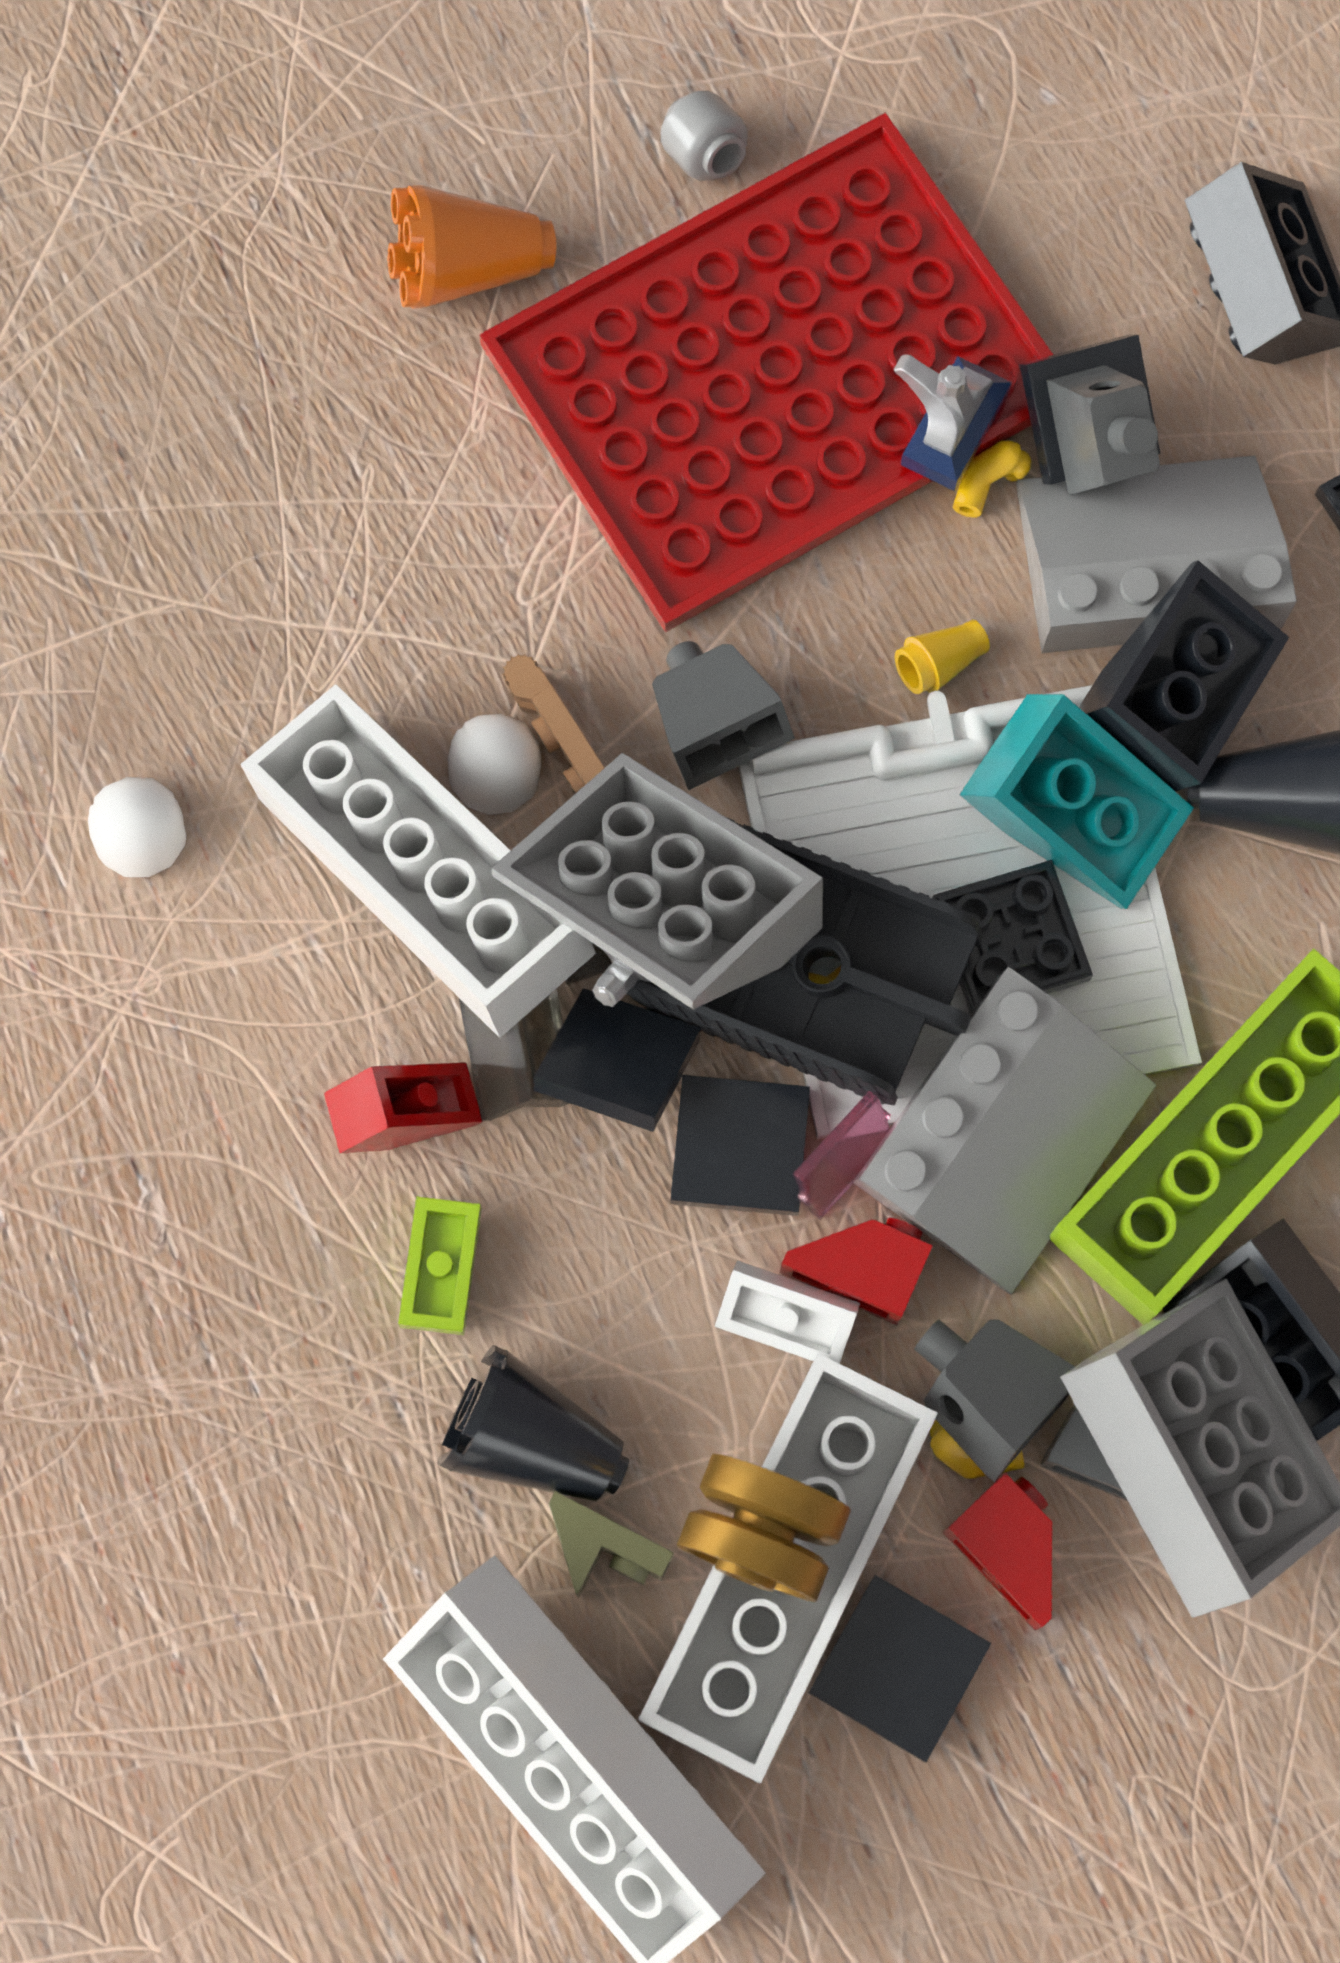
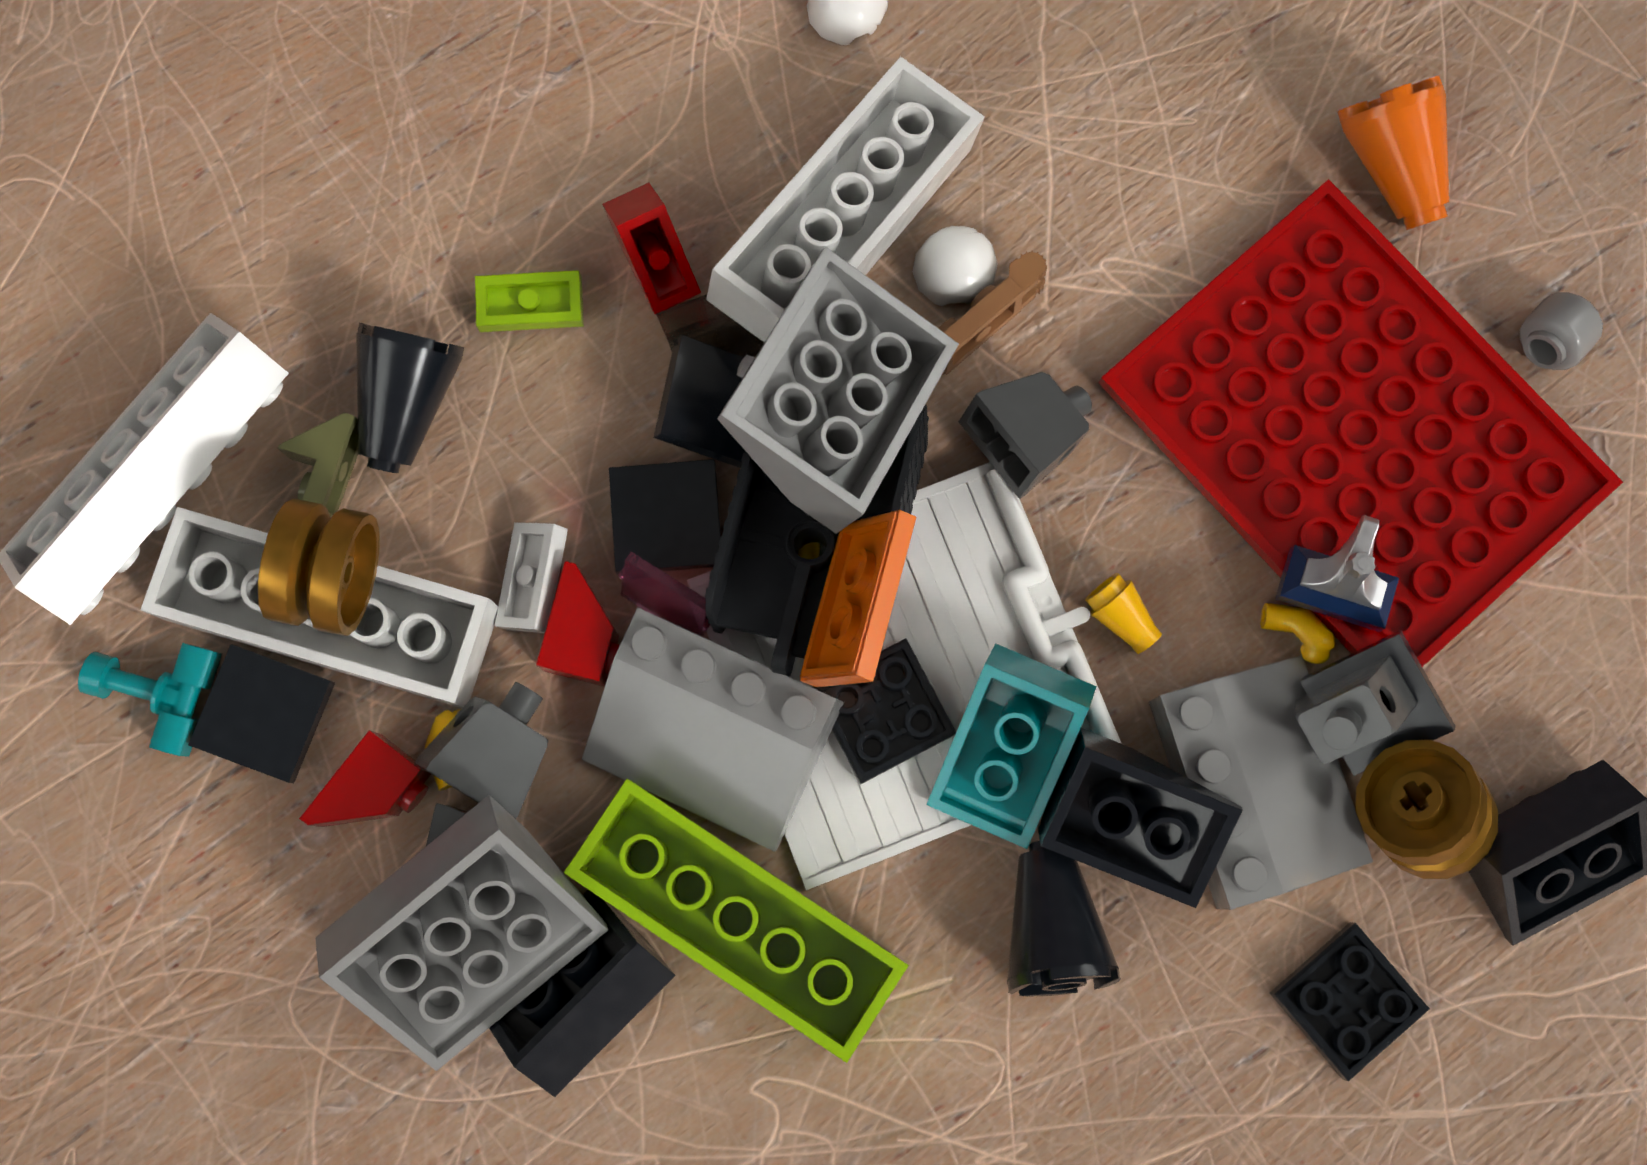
camera: 80 degrees right, 5 degrees up
(861, 1778) = (170, 696): none -> teal bar
(913, 910) = (857, 600): none -> orange tile
(1181, 387) = (1427, 809): none -> pearl gold wheel

